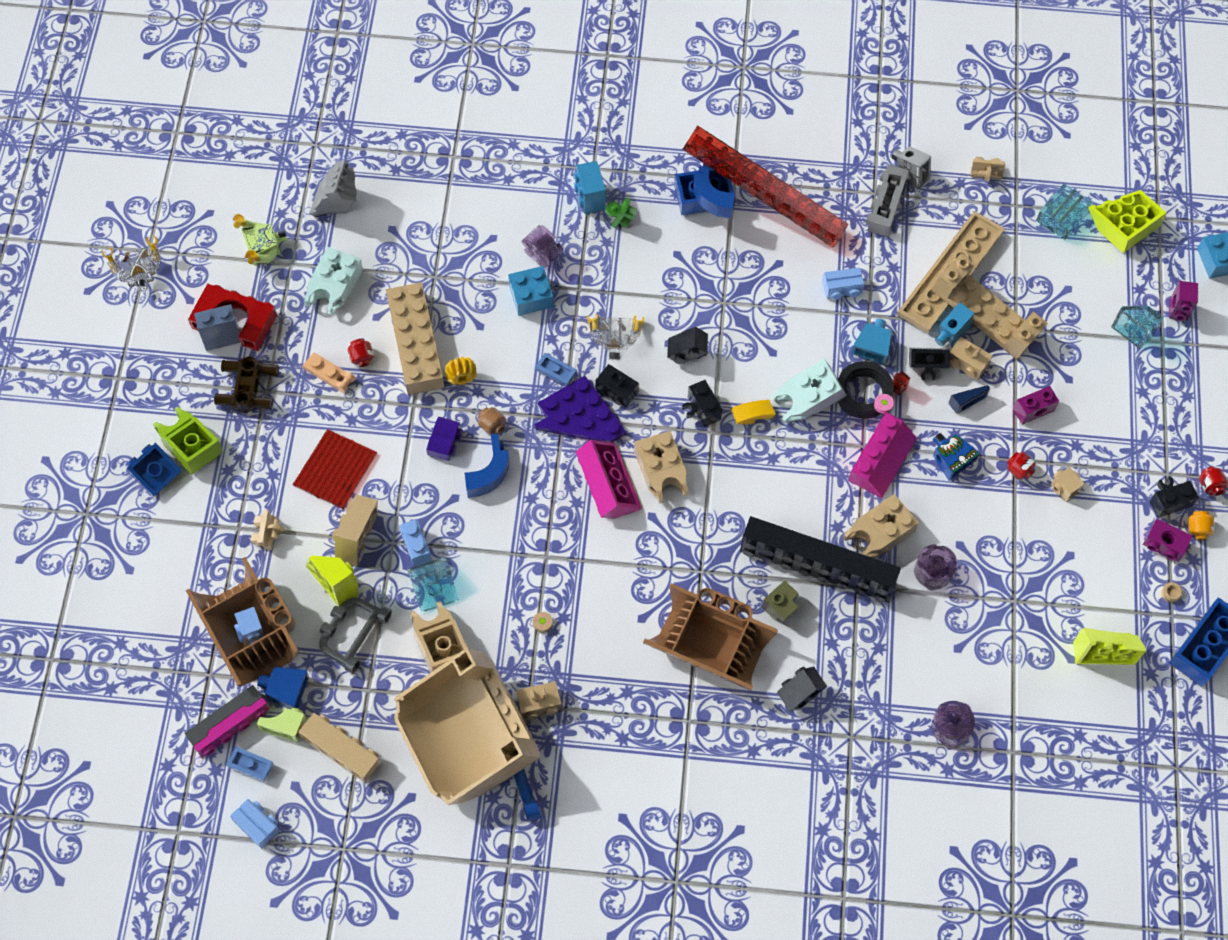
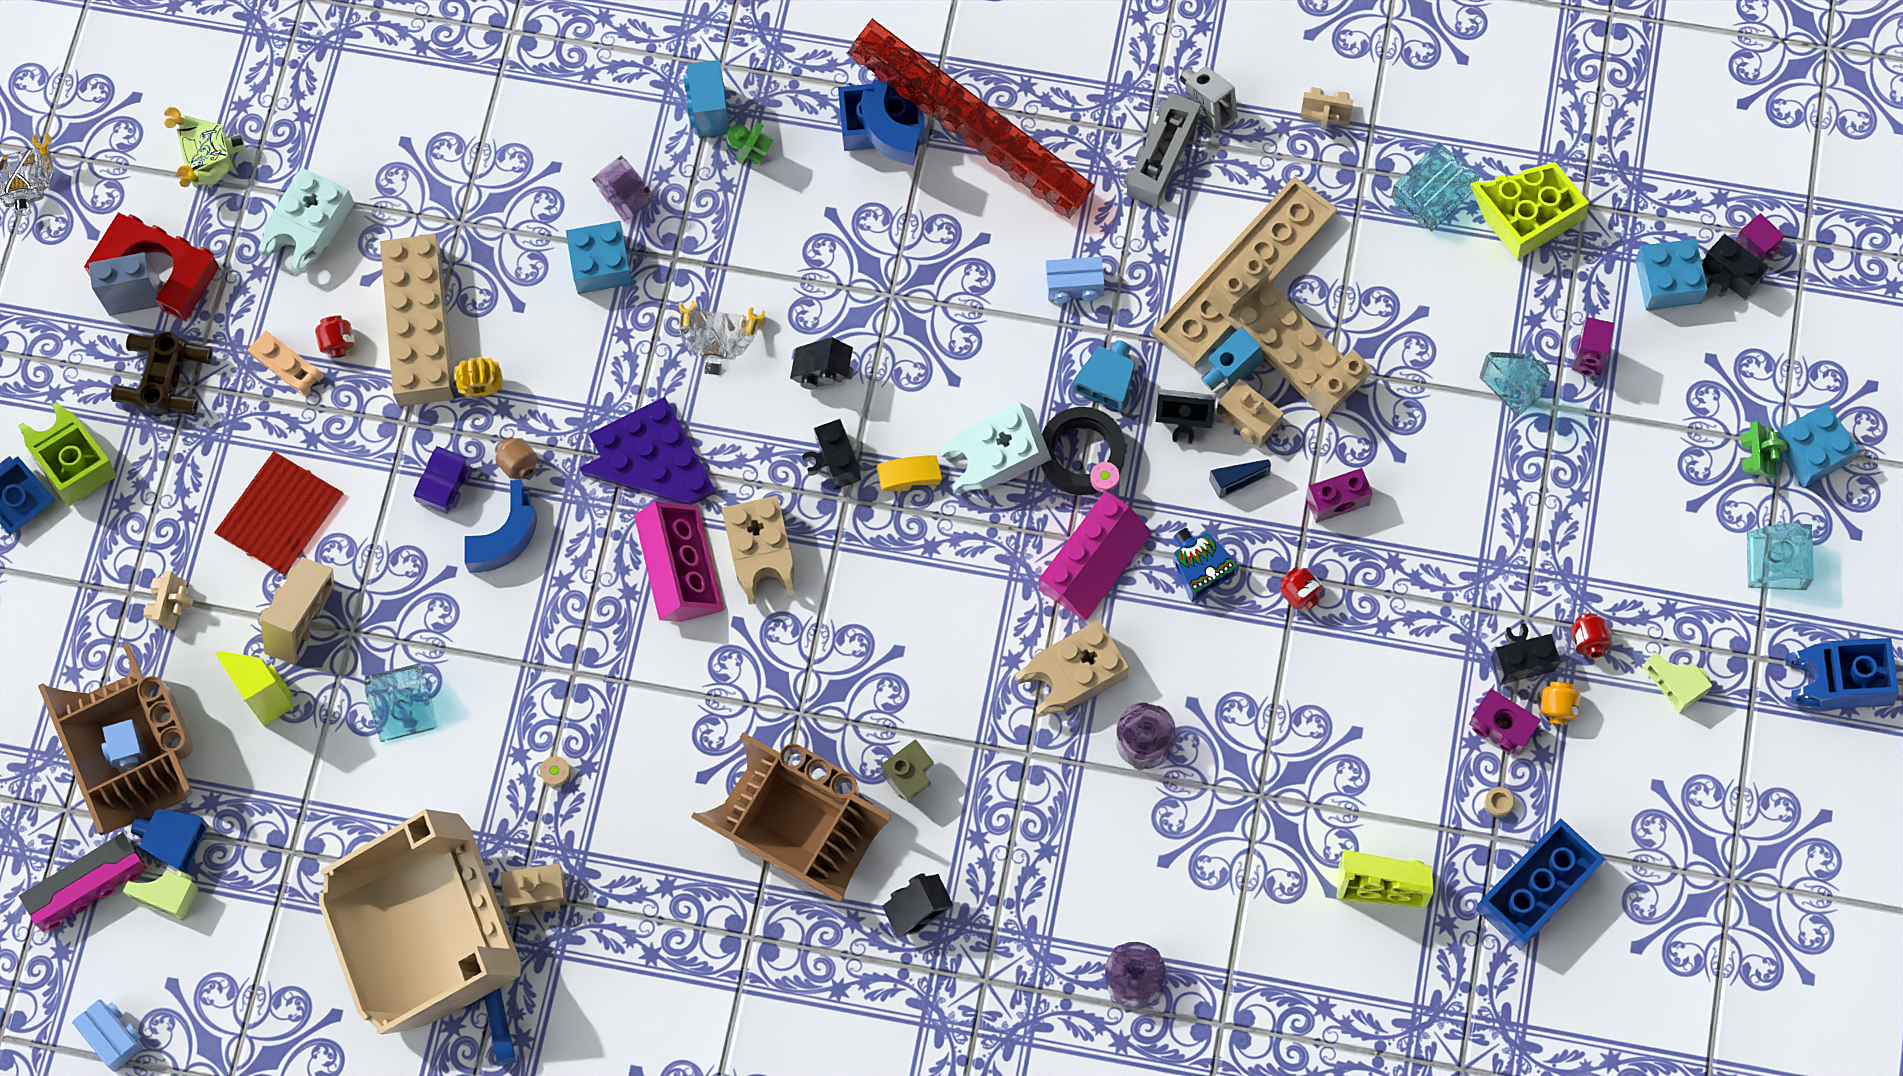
camera: 10 degrees right, 5 degrees up
(250, 764) = (109, 947): medium blue plate -> none
(336, 191) = (322, 79): light grey slope -> none
(339, 613) = (260, 734): dark grey bar -> none
(339, 747) = (238, 935): tan brick -> none
(415, 543) = (382, 637): light blue brick -> none
(438, 638) = (396, 780): tan brick -> none
(556, 369) = (622, 384): medium blue plate -> none
(616, 386) = (709, 417): black brick -> none
(819, 559) = (972, 711): black piece -> none
(901, 382) = (1137, 444): clear red piece -> none
(1067, 483) = (1367, 622): tan brick -> none

